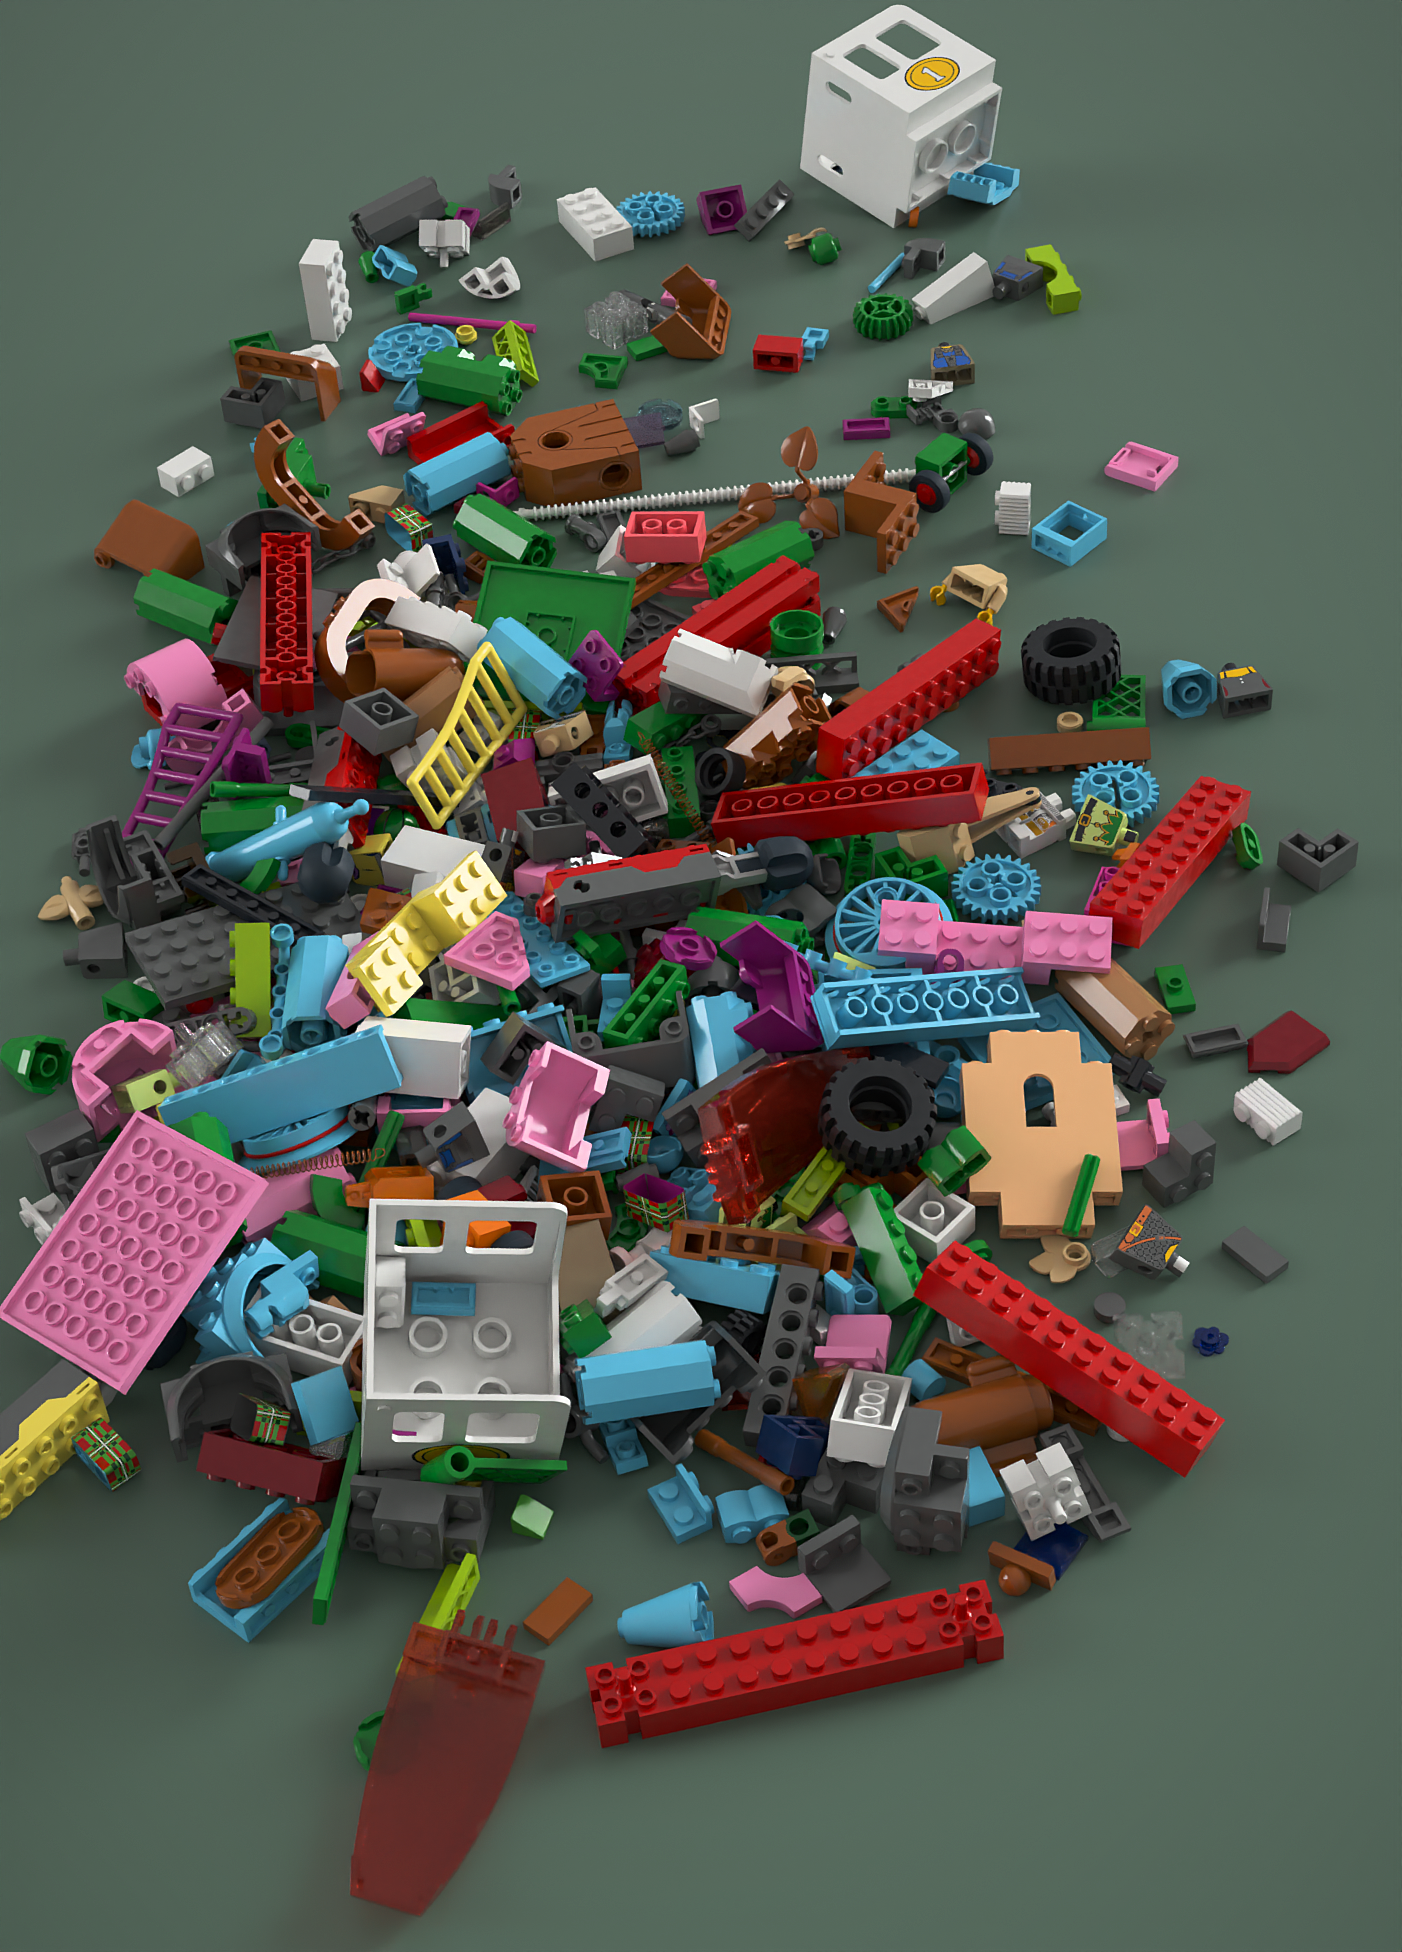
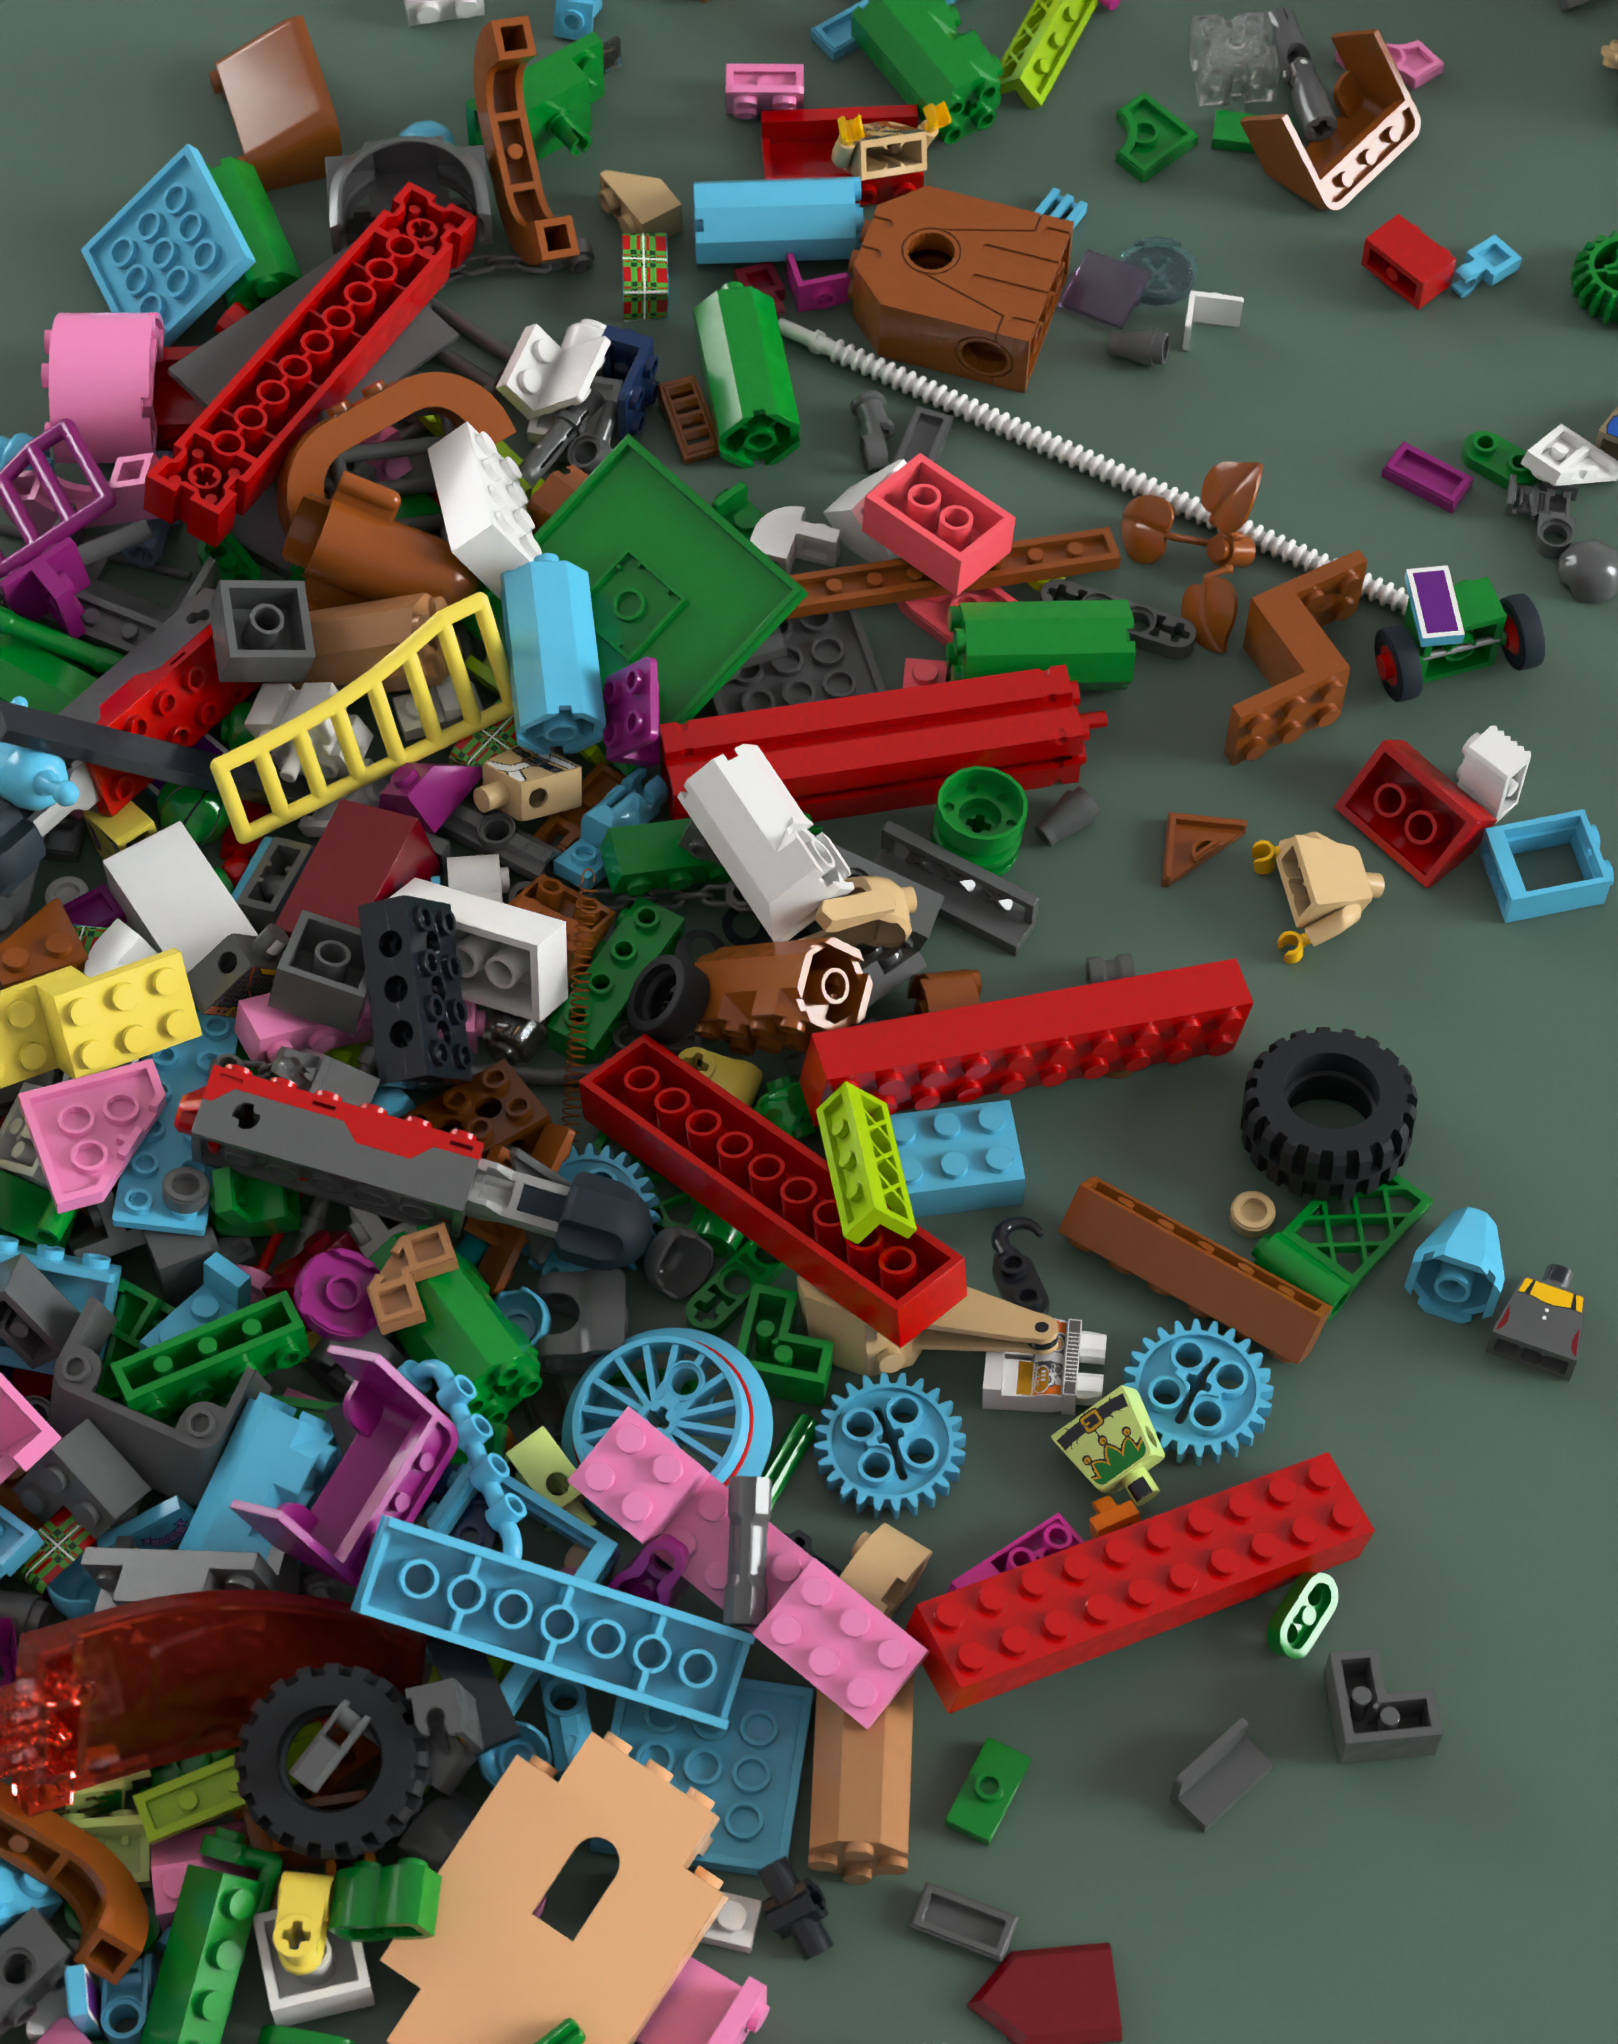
camera: 30 degrees right, 15 degrees up
(151, 616) = (170, 247): none -> medium azure plate
(485, 420) = (887, 146): none -> tan torso
(566, 951) = (185, 1190): none -> dark grey tile
(712, 918) = (411, 1260): none -> medium nougat tile
(879, 1095) = (324, 1753): none -> dark grey bar
(892, 761) = (864, 1164): none -> lime fence
(919, 1194) = (303, 1914): none -> light yellow piece
(920, 1056) = (449, 1710): none -> dark grey hinge
(932, 451) = (1434, 606): none -> tile
(976, 919) = (747, 1554): none -> dark grey axle
(991, 543) = (1414, 812): none -> red slope

